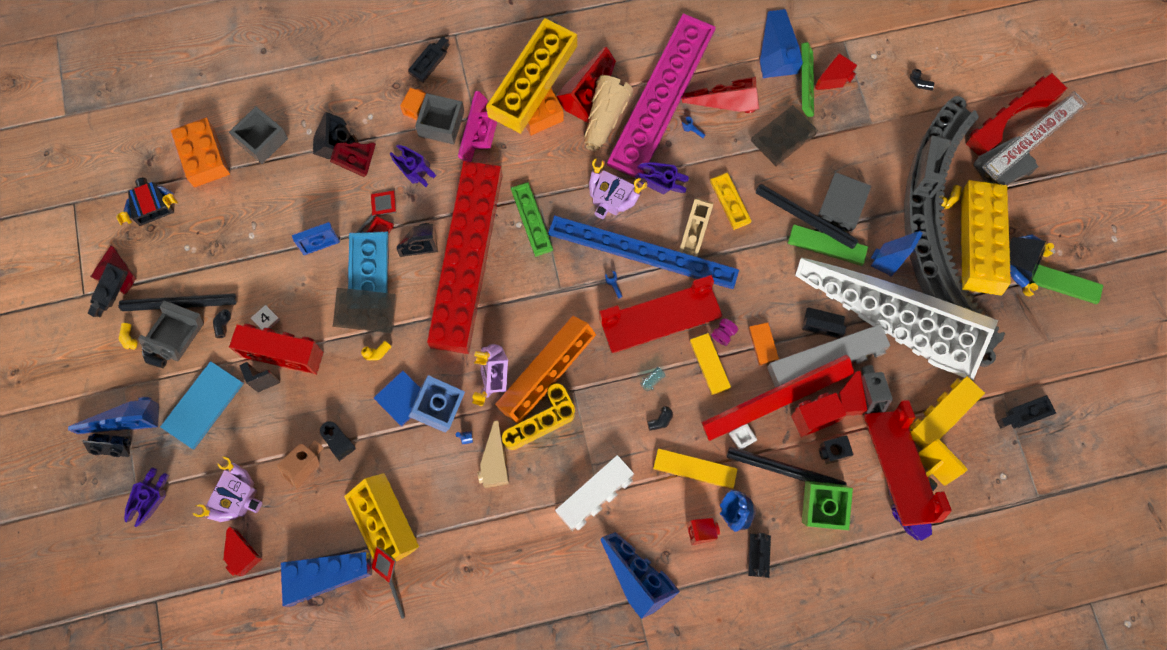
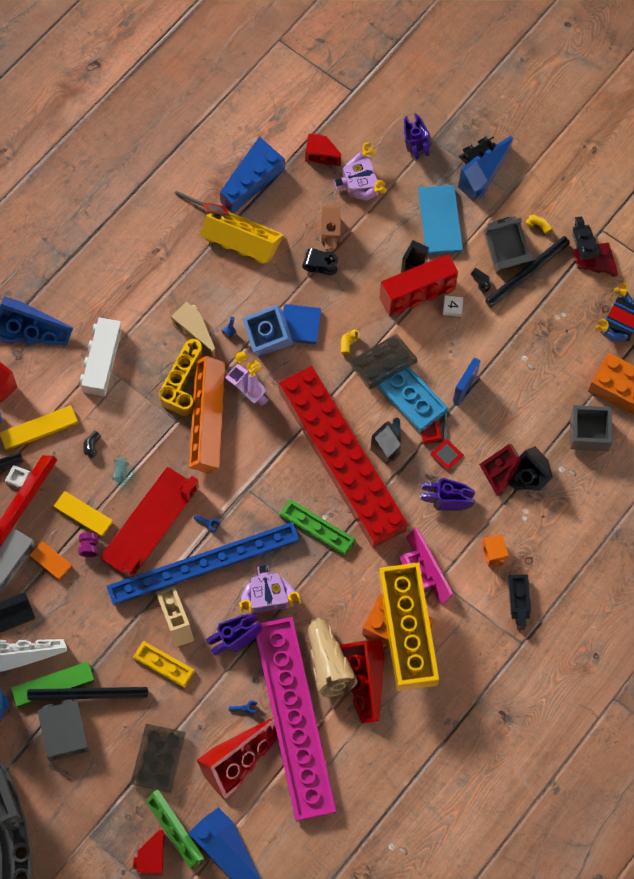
camera: 140 degrees right, 5 degrees down
(440, 118) = (460, 548): dark grey piece -> none

